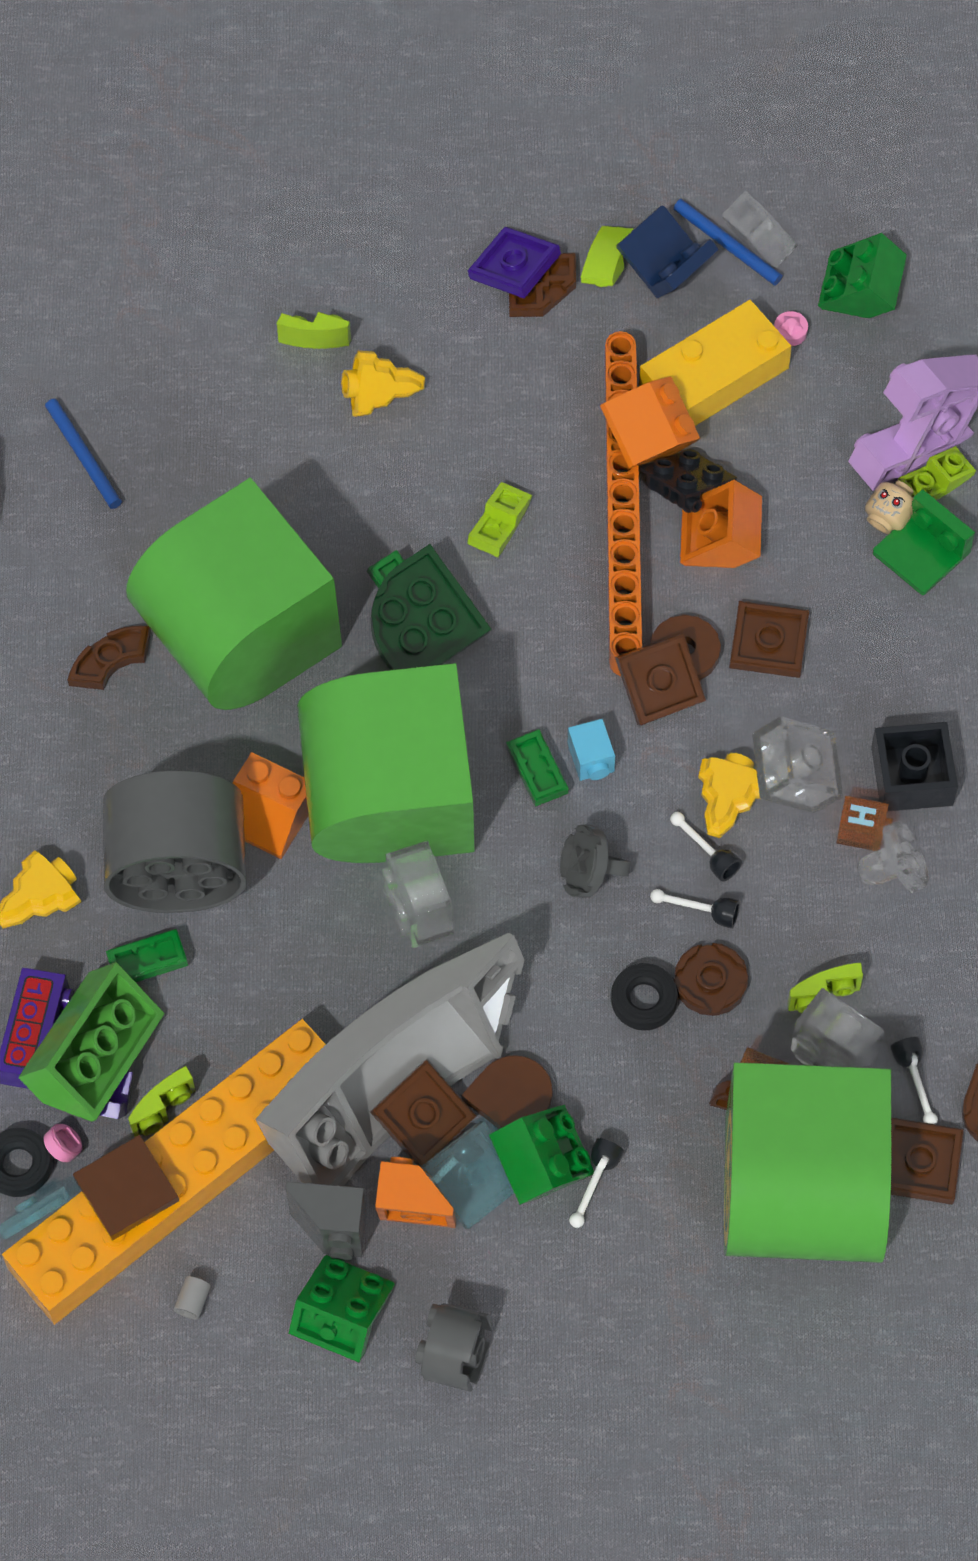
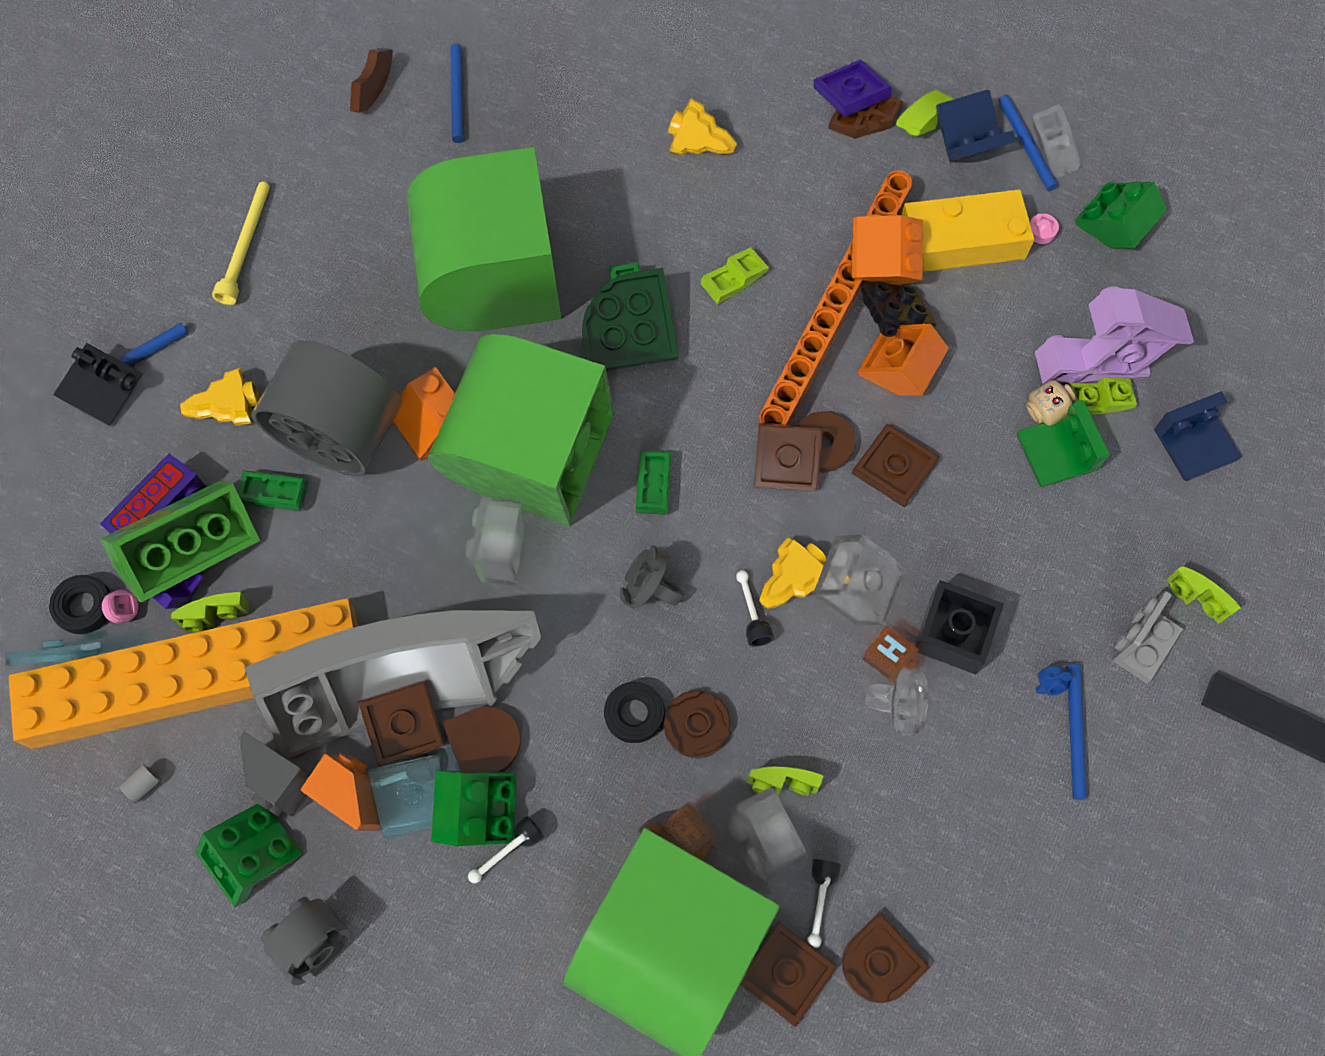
camera: 25 degrees right, 5 degrees up
(108, 655) = (380, 248): reddish brown tile -> none
(126, 1187) = (125, 670): reddish brown tile -> none
(323, 333) = (676, 78): lime slope -> none
(591, 750) = (702, 488): medium azure brick -> none
(723, 911) = (736, 672): hinge -> none

